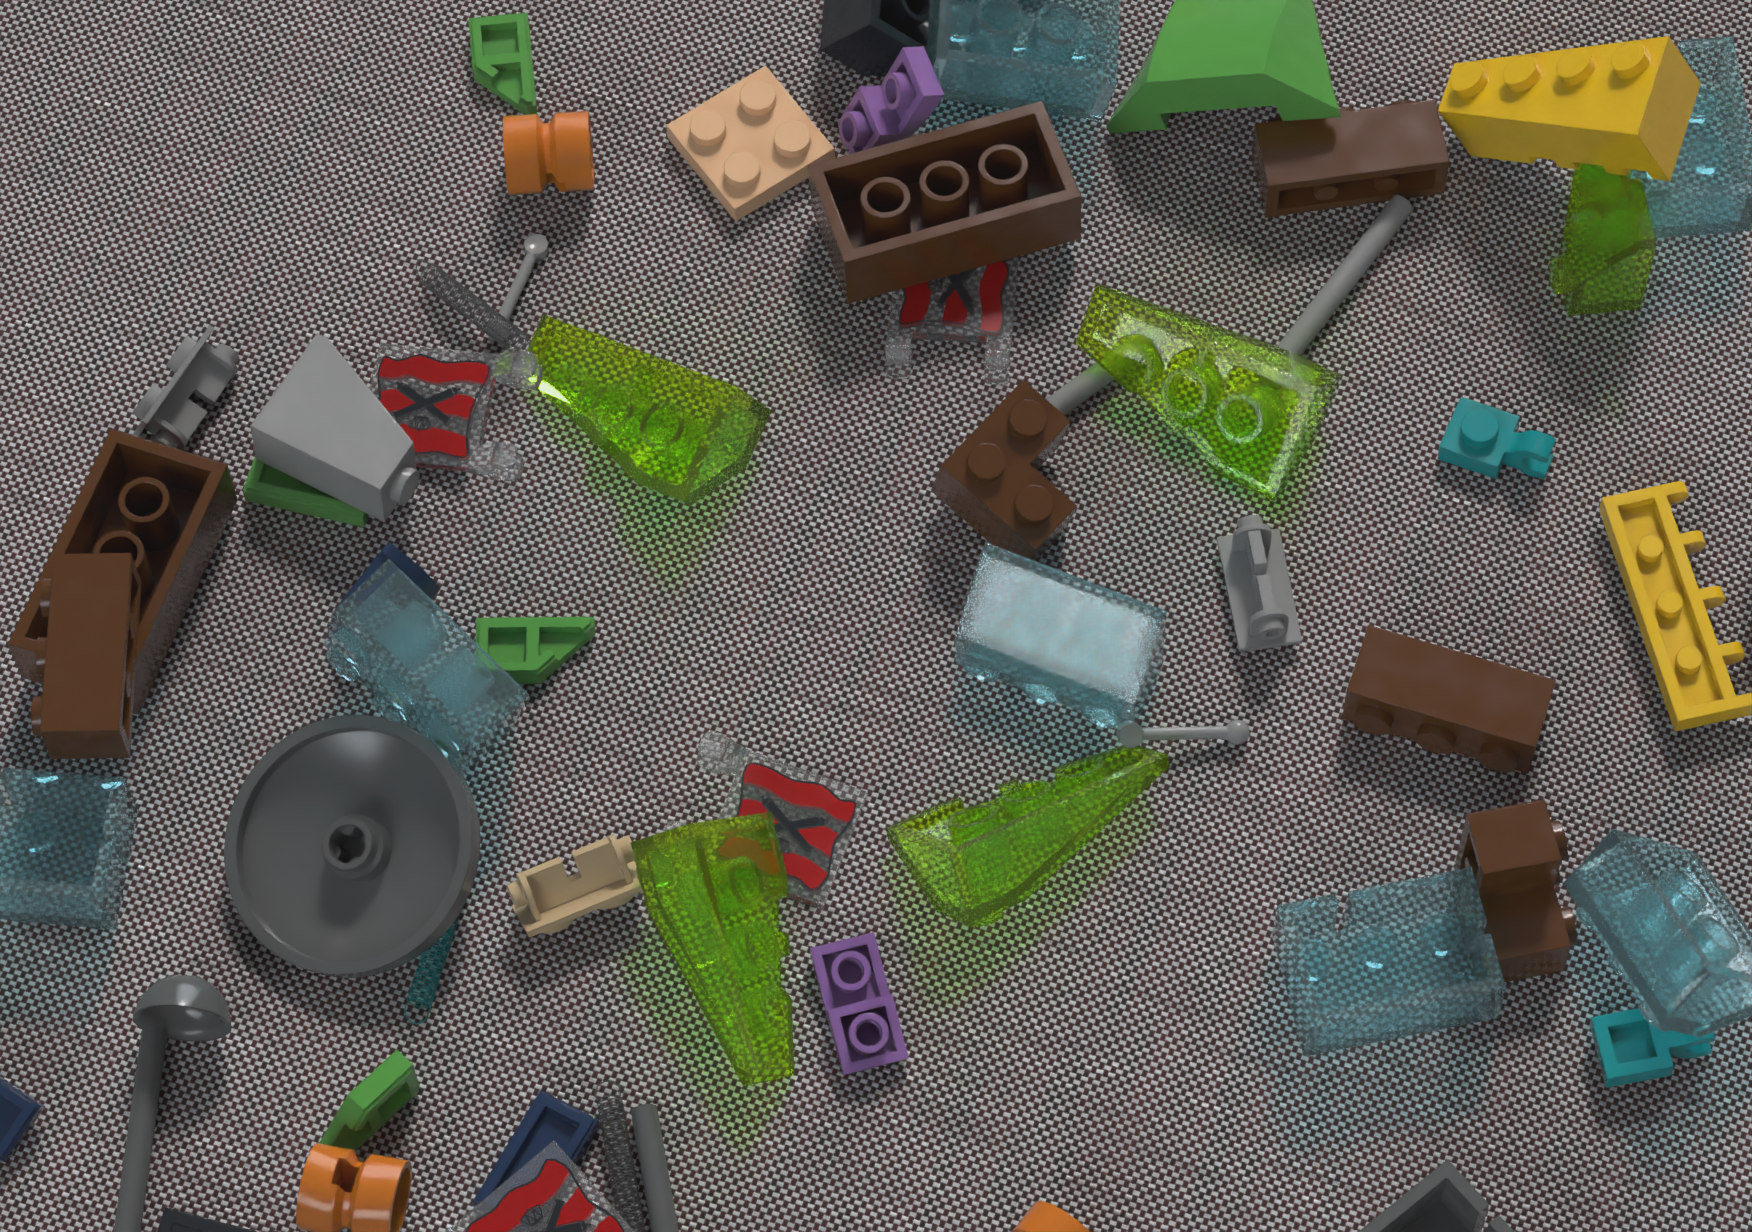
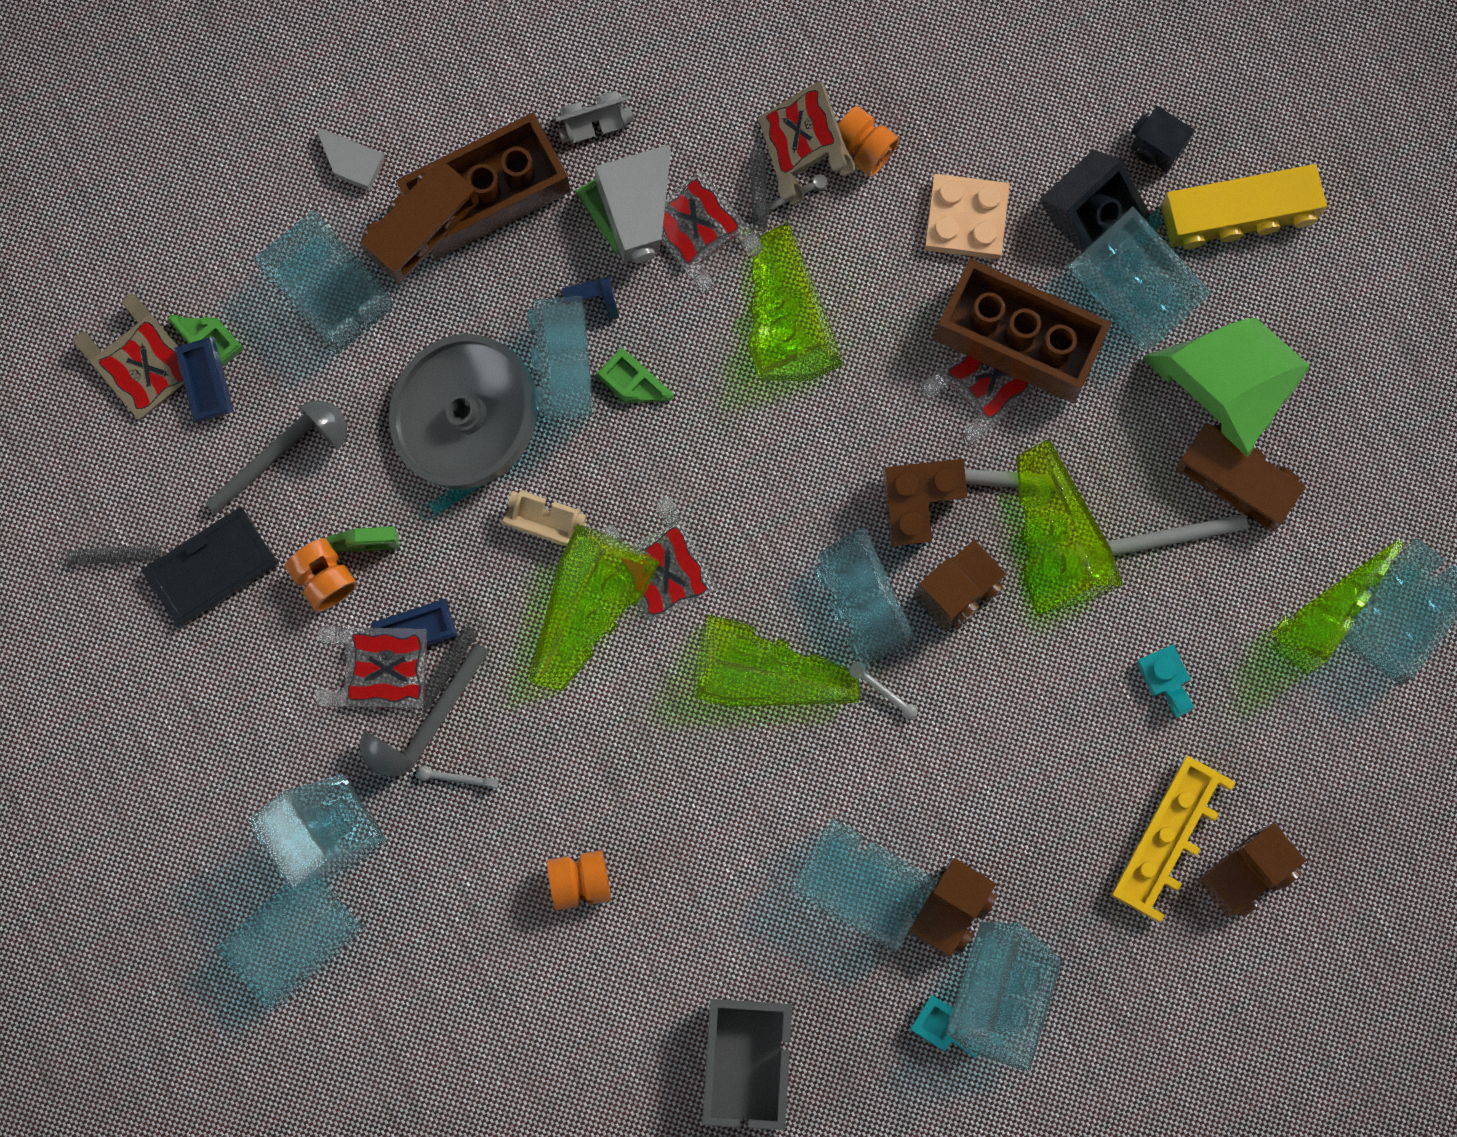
camera: 40 degrees right, 15 degrees up
(468, 201) = (801, 135): none -> dark tan flag
(504, 58) = (893, 71): bright green tile -> none
(858, 1003) = (619, 684): medium lavender slope -> none
(895, 107) = (1042, 261): medium lavender slope -> none
(1159, 537) = (958, 585): none -> reddish brown brick
(1258, 586) = (987, 652): light grey hinge -> none
(1447, 700) = (1016, 787): reddish brown brick -> none
(1576, 106) = (1364, 558): yellow wedge -> none

